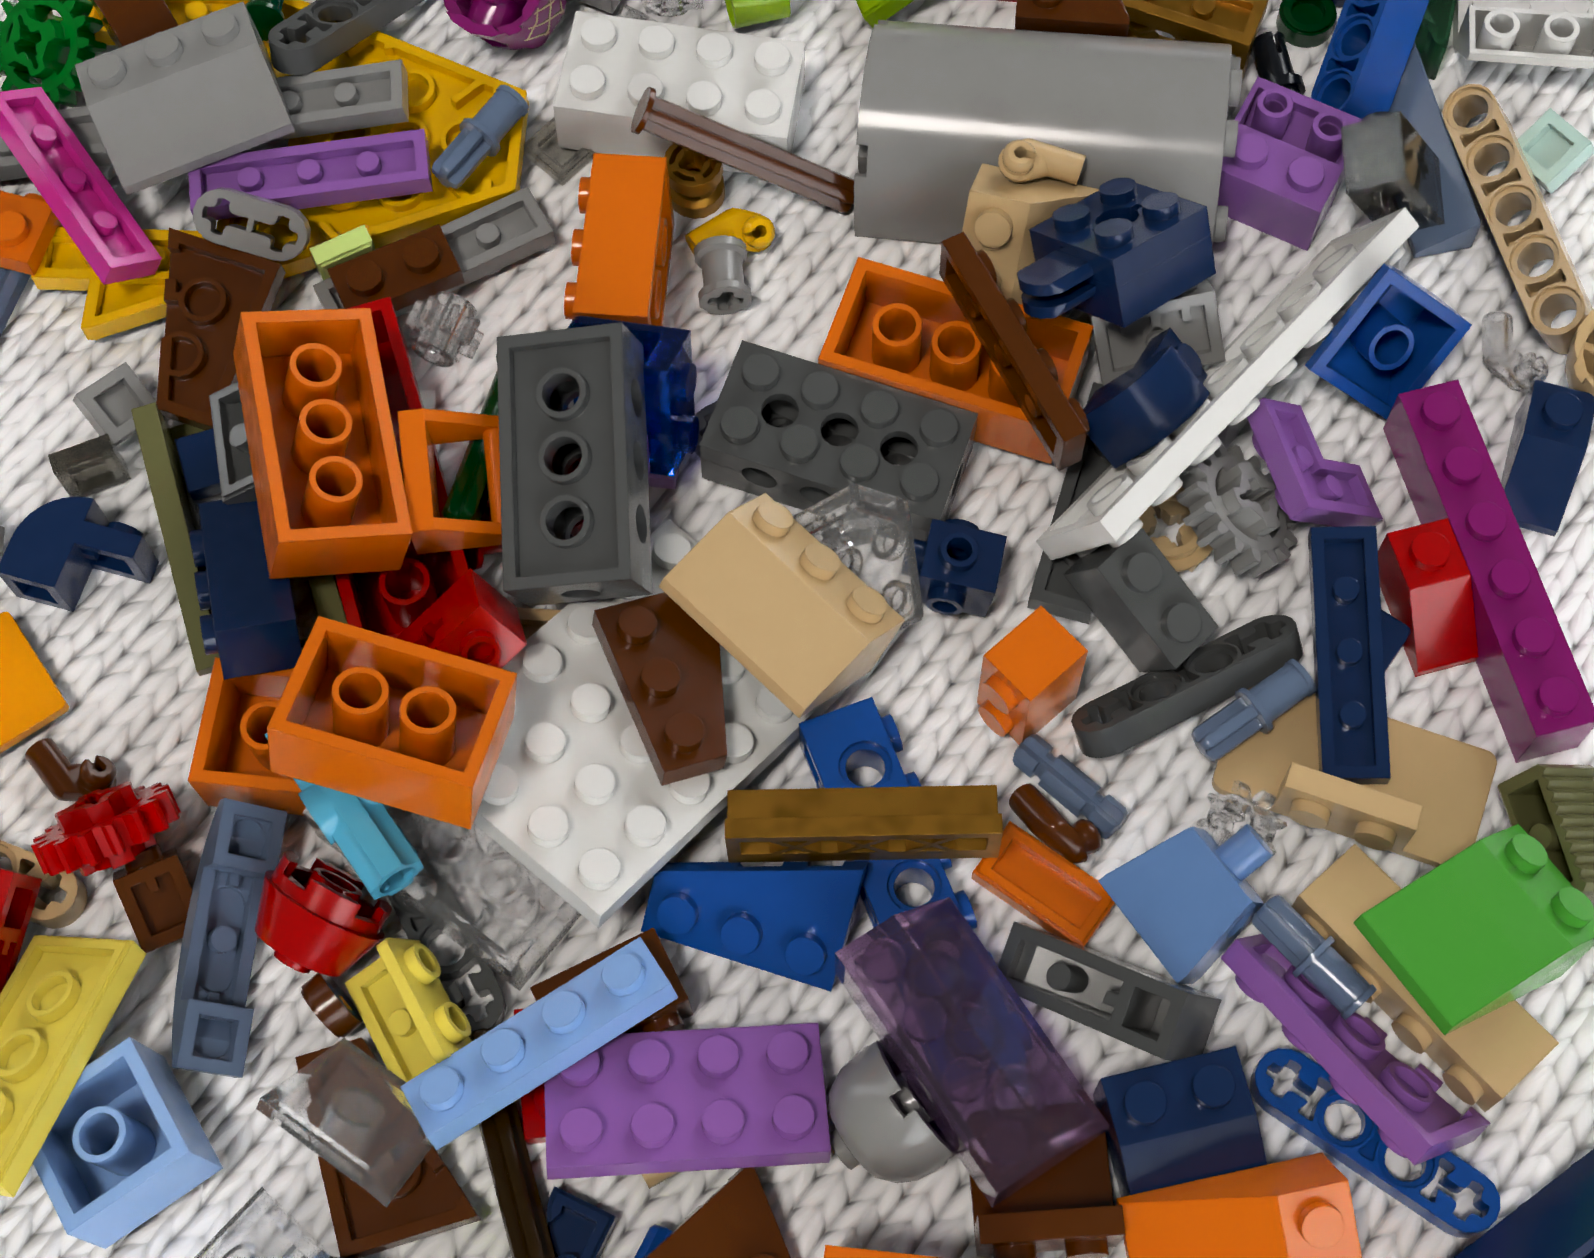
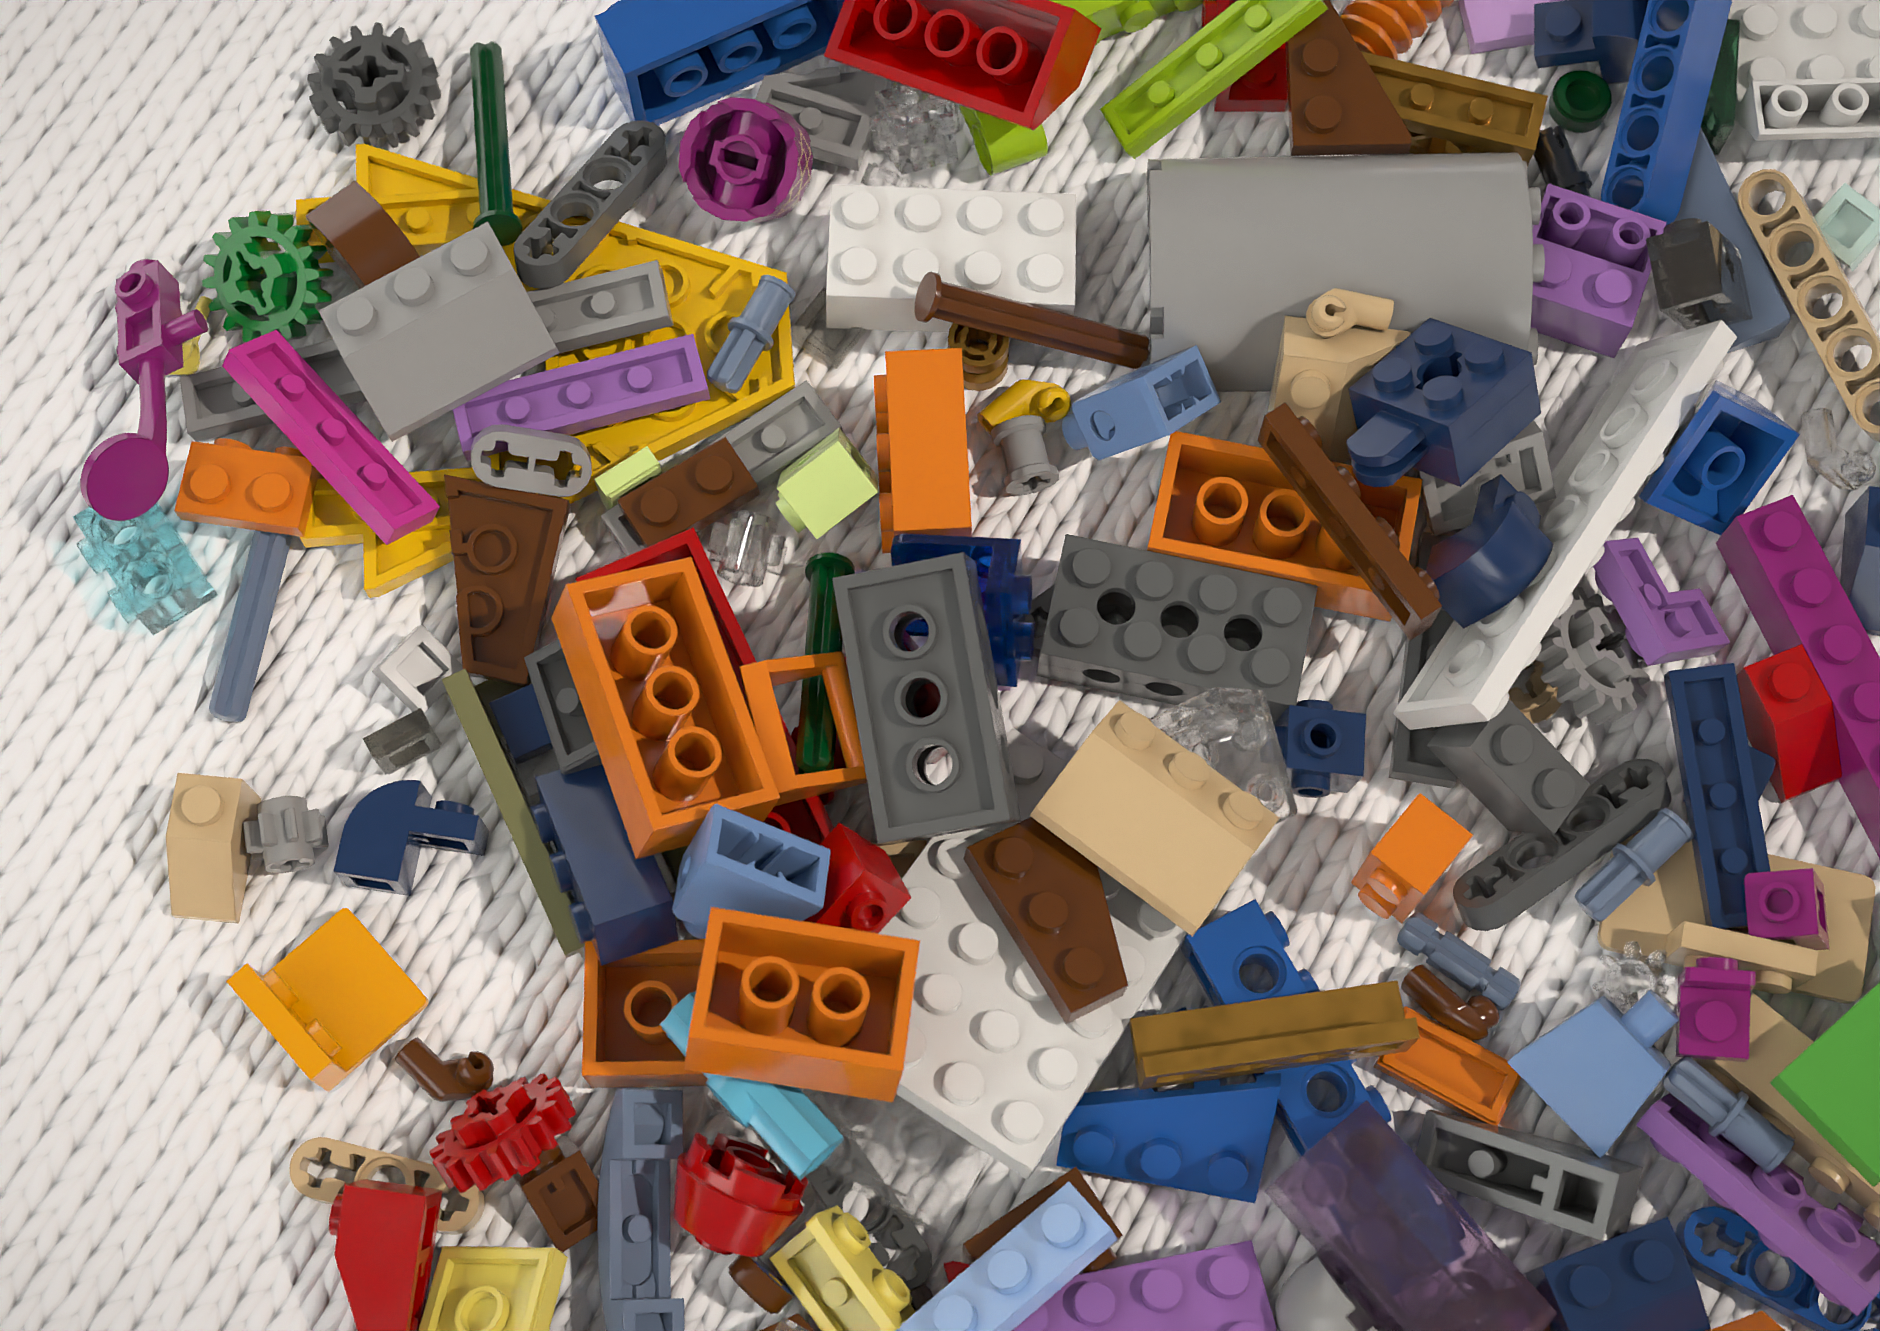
camera: 10 degrees left, 5 degrees up
(372, 590) = (748, 869): none -> medium blue torso
(521, 272) = (825, 485): none -> yellowish green brick
(817, 240) = (1131, 414): none -> medium blue torso
(1310, 850) = (1714, 1010): none -> magenta bracket
(1402, 762) = (1787, 907): none -> magenta bracket

